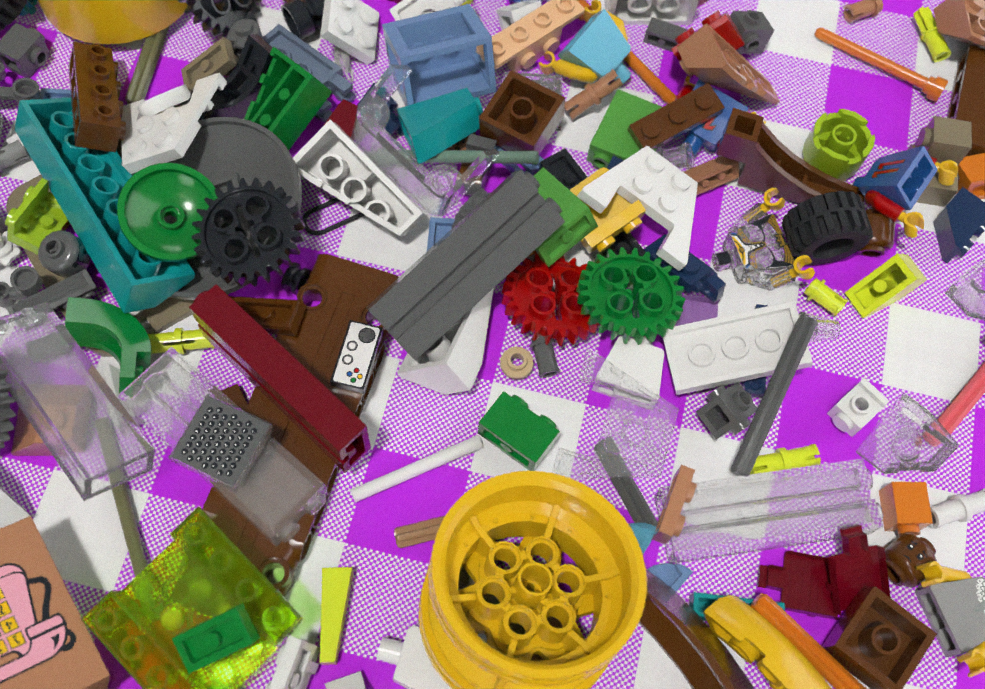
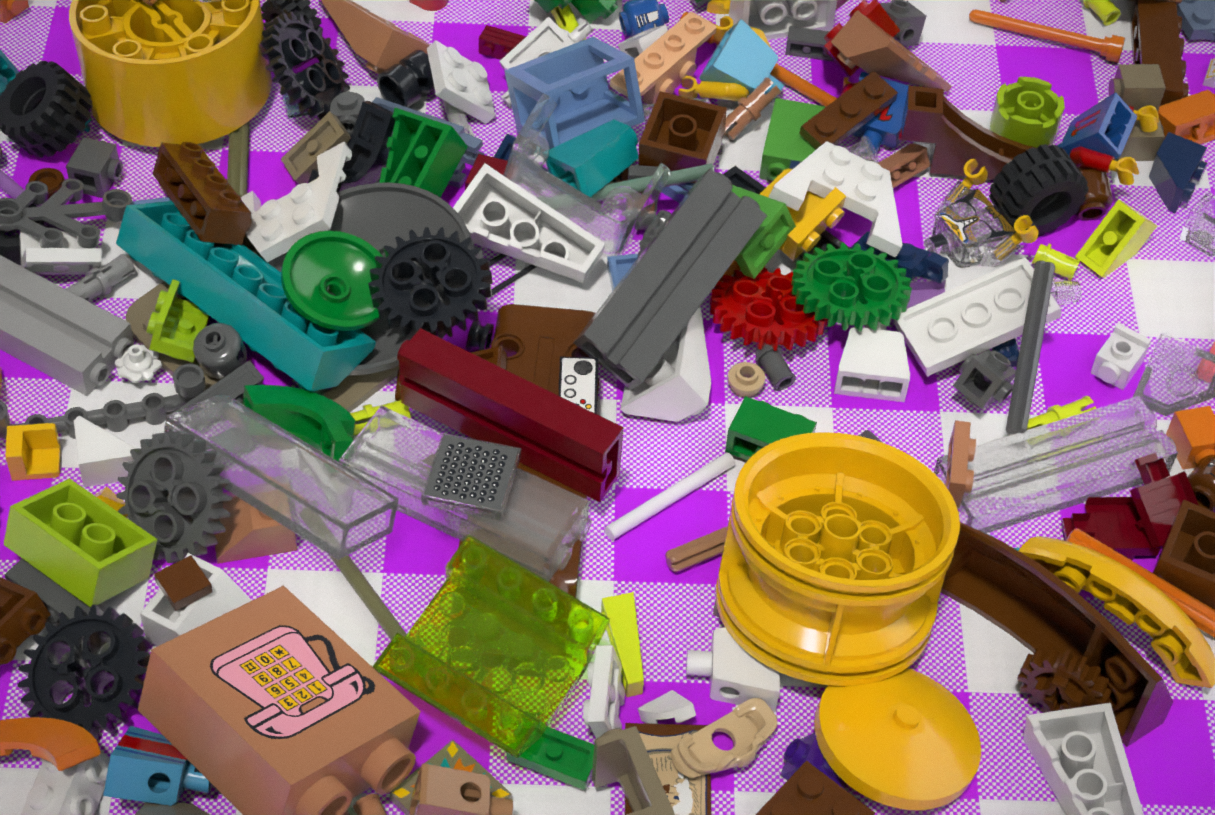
camera: 10 degrees left, 15 degrees down
(173, 98) = (279, 187): white beam -> none
(215, 638) = (522, 655): green plate -> none
(633, 432) = (893, 401): clear wing -> none

